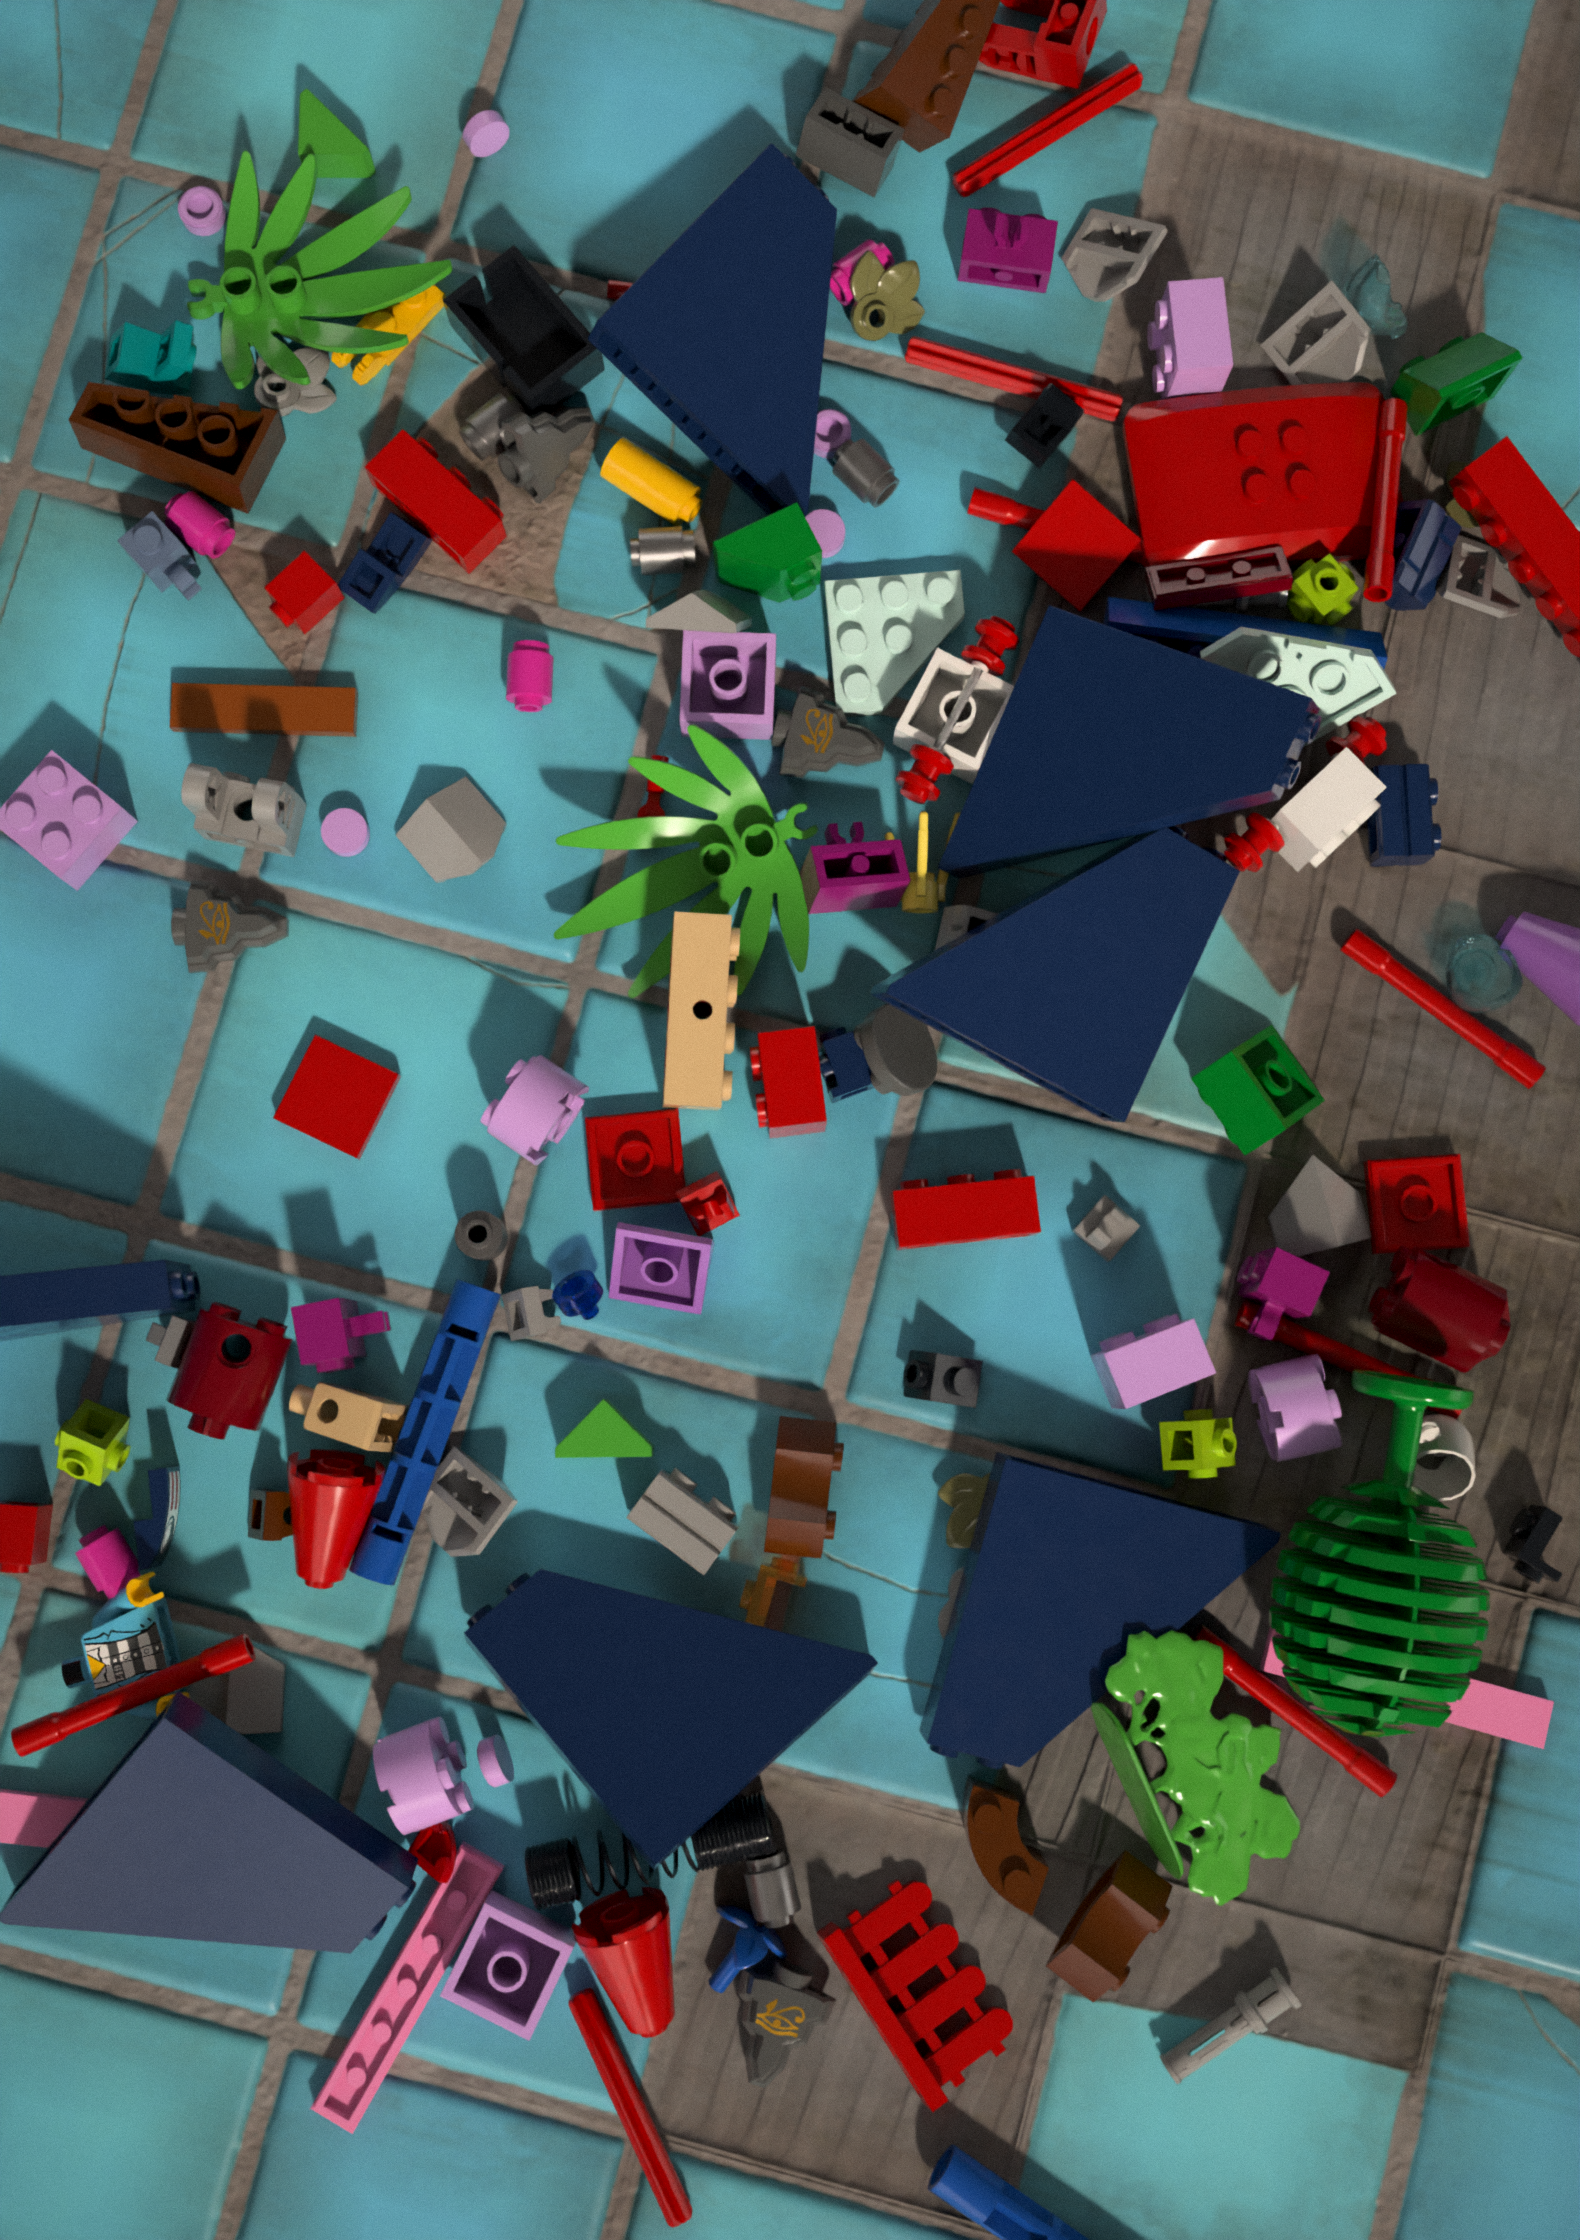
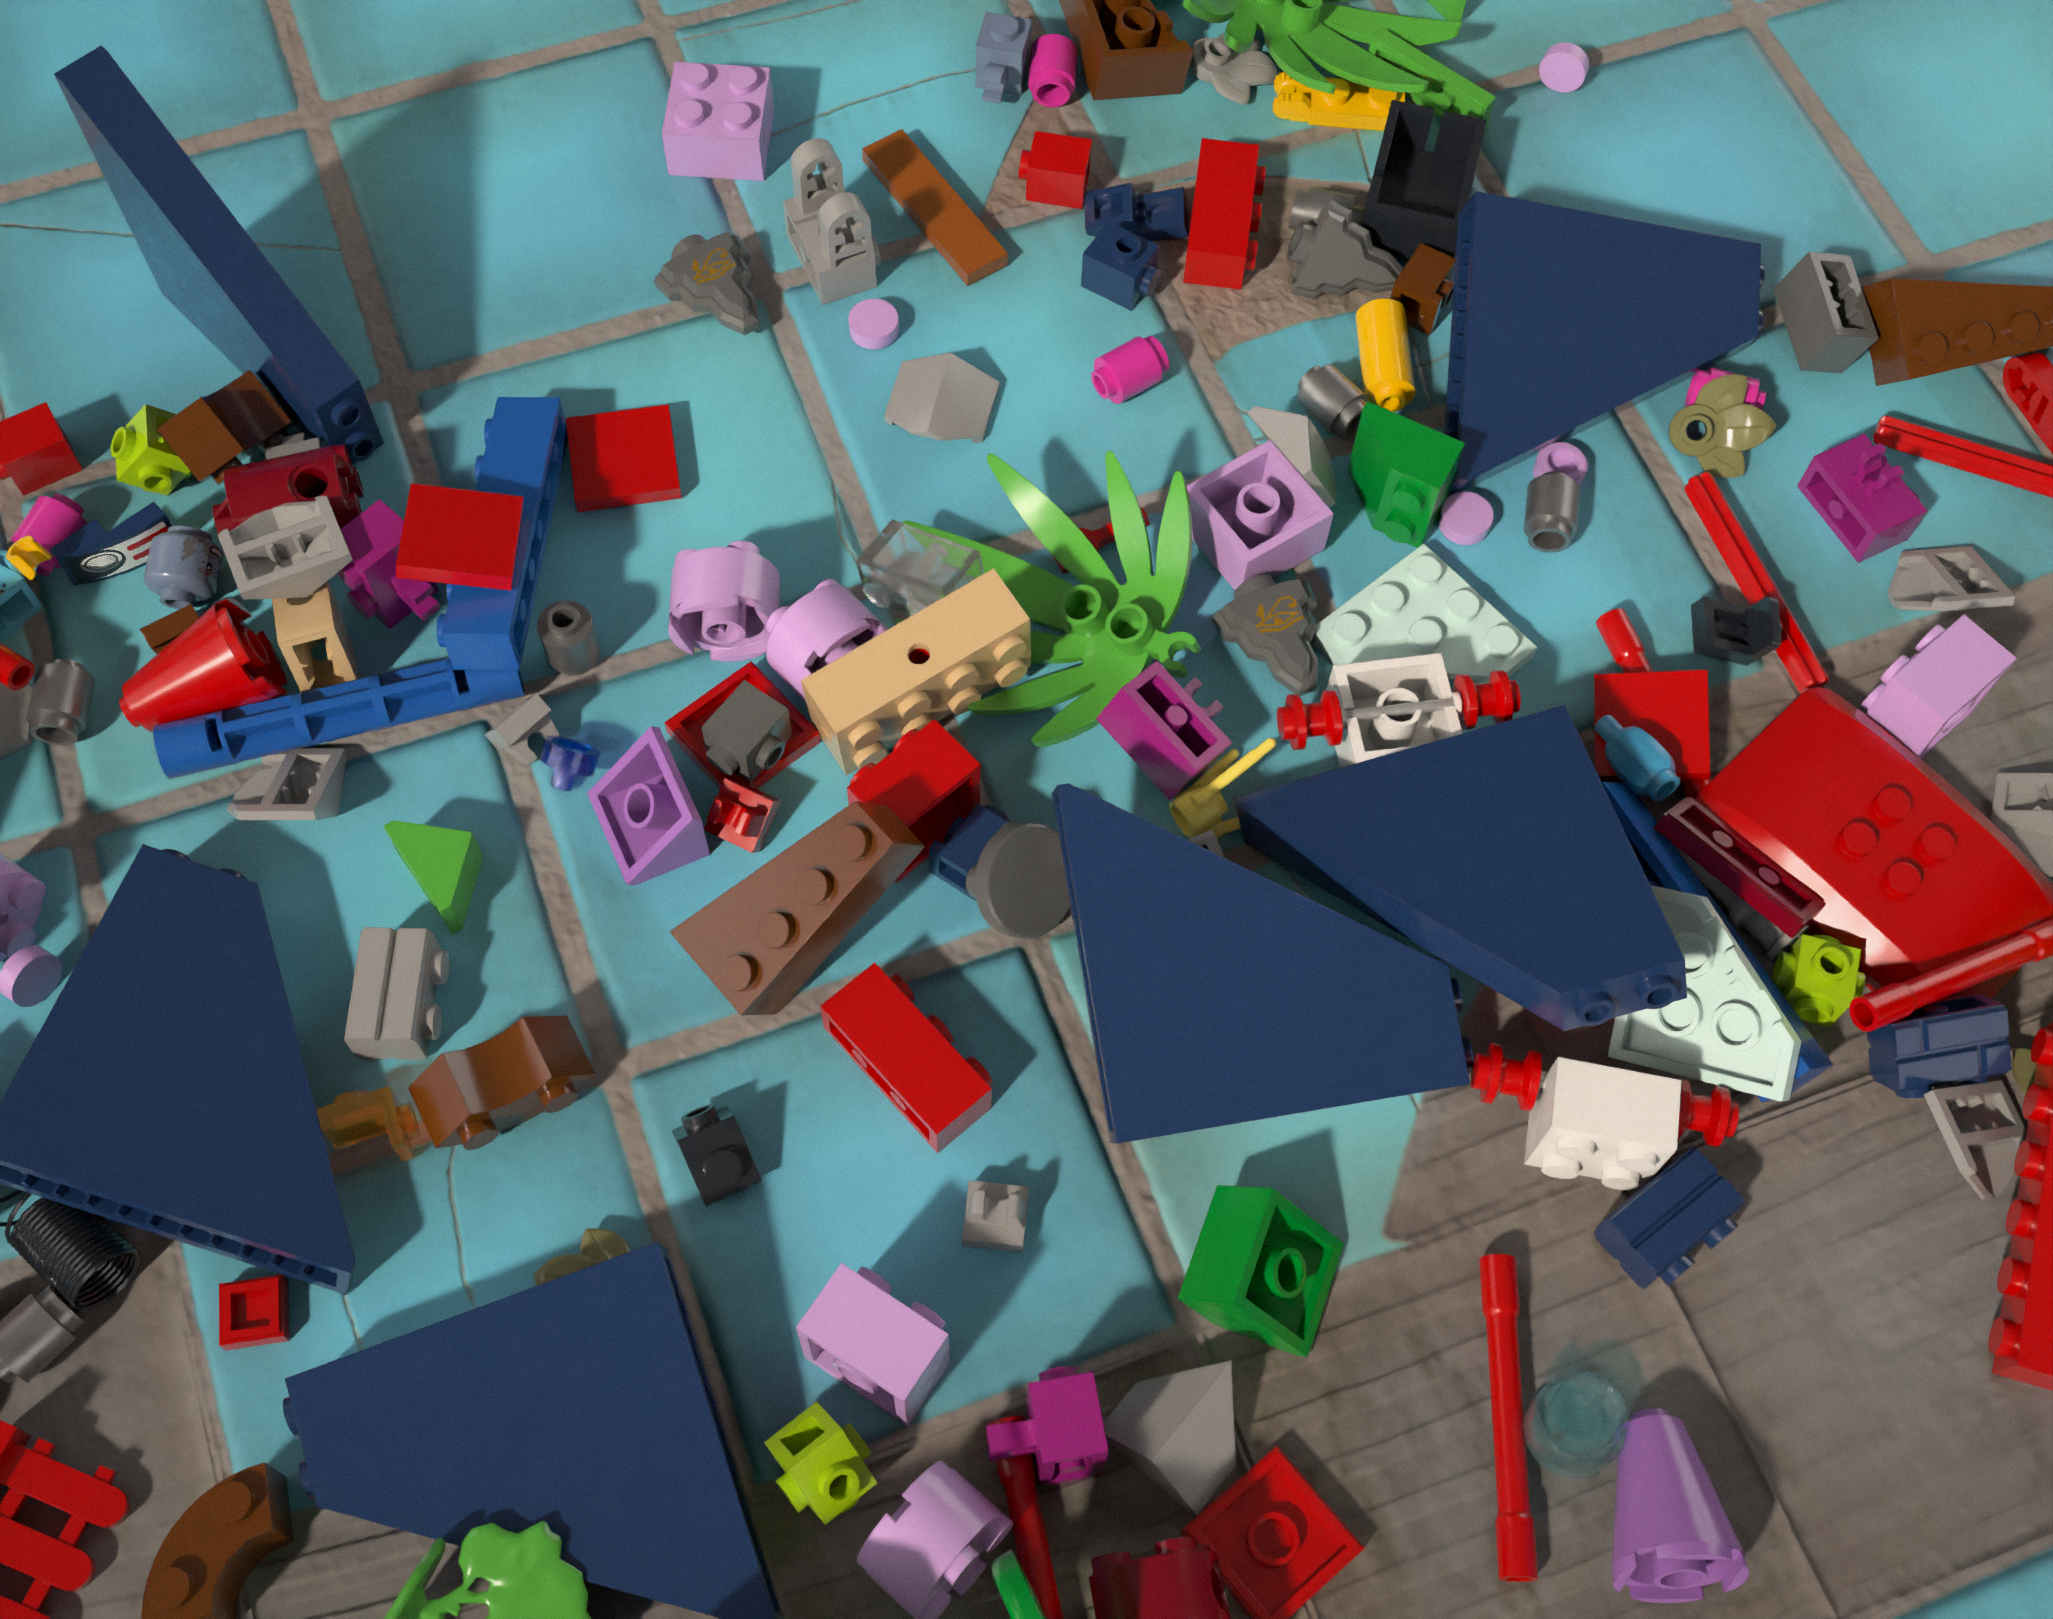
camera: 55 degrees right, 20 degrees down
(115, 1379) = (226, 428): none -> reddish brown brick
(216, 1478) = (183, 566): none -> sand blue head
(274, 1627) = (60, 702): none -> flat silver brick
(288, 1400) = (286, 550): none -> light grey slope
(362, 1226) = (520, 459): none -> blue brick
(370, 1268) = (460, 537): none -> red tile
(432, 613) = (1120, 266): none -> dark blue brick
(446, 242) = (1445, 89): none -> bright green tile
(608, 954) = (914, 568): none -> clear brick
(614, 406) = (1425, 287): none -> reddish brown brick
(623, 1059) = (817, 632): none -> lavender brick
(656, 1162) = (747, 733): none -> dark grey brick
(825, 1230) = (797, 908): none -> reddish brown wedge
(846, 1737) = (253, 1312): none -> red tile
(1098, 578) = (1638, 759): none -> dark azure plant

